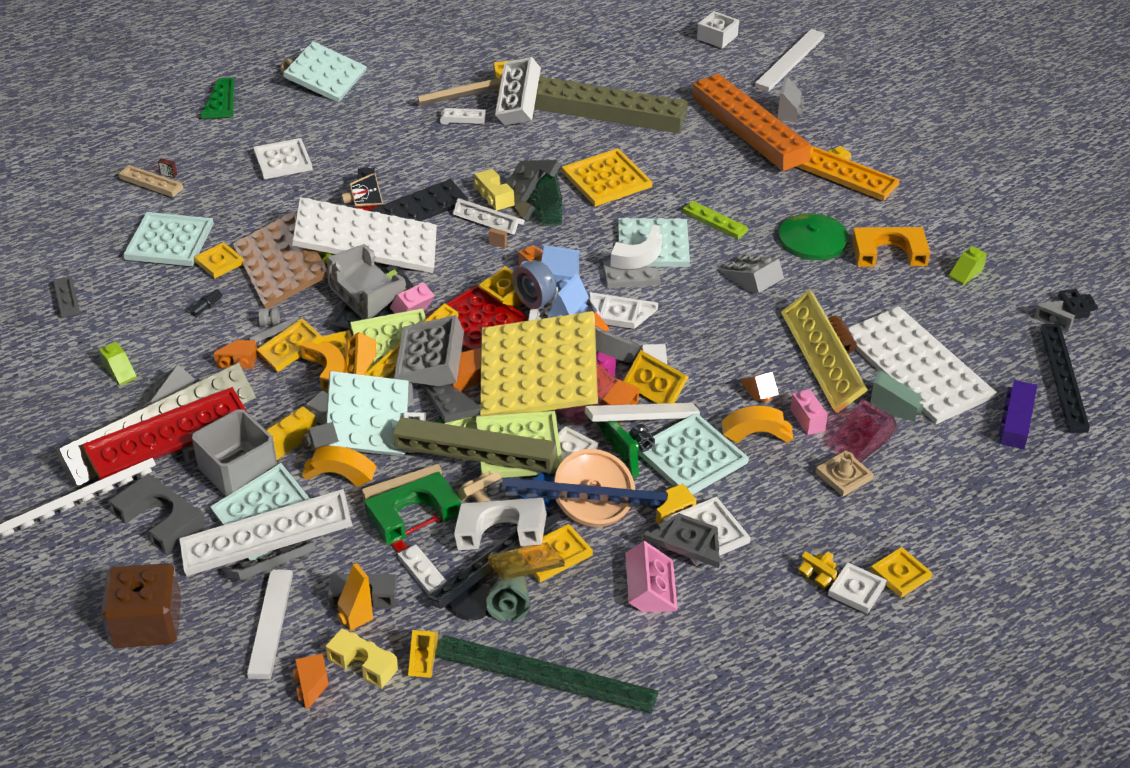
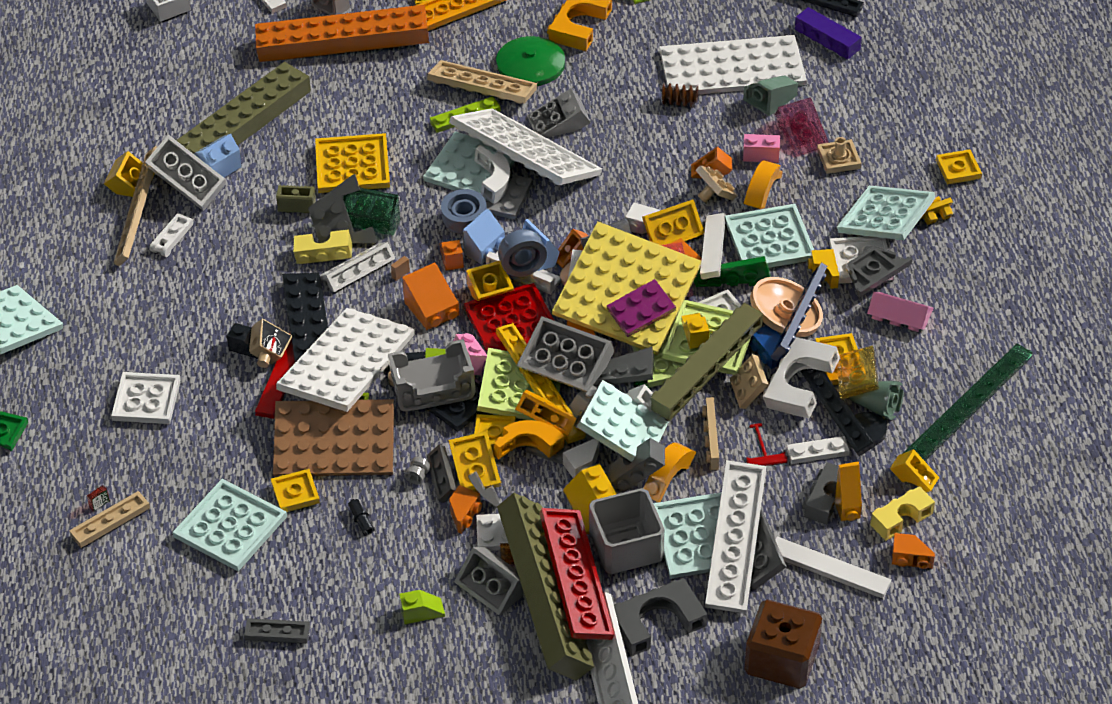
camera: 65 degrees left, 5 degrees up
(256, 360) = (488, 493): none -> light grey slope
(429, 490) = (736, 412): green arch -> none
(469, 260) = (429, 296): none -> orange slope
(511, 423) = (695, 329): none -> yellow arch
(513, 379) = (641, 308): none -> magenta plate
(536, 151) = (295, 198): none -> olive brick
(553, 106) = (221, 155): none -> light blue slope
(590, 246) = (461, 208): none -> sand blue piece
(621, 310) = (560, 218): white wing -> none
(643, 437) = (750, 253): black wheel -> none
(686, 258) = (525, 146): none -> white plate
(729, 389) = (715, 184): none -> tan plate
(758, 214) = (482, 81): none -> tan plate
(776, 526) = (886, 212): none -> light aqua plate
(824, 351) = (694, 110): light yellow plate -> none
(857, 588) = (965, 196): white plate -> none

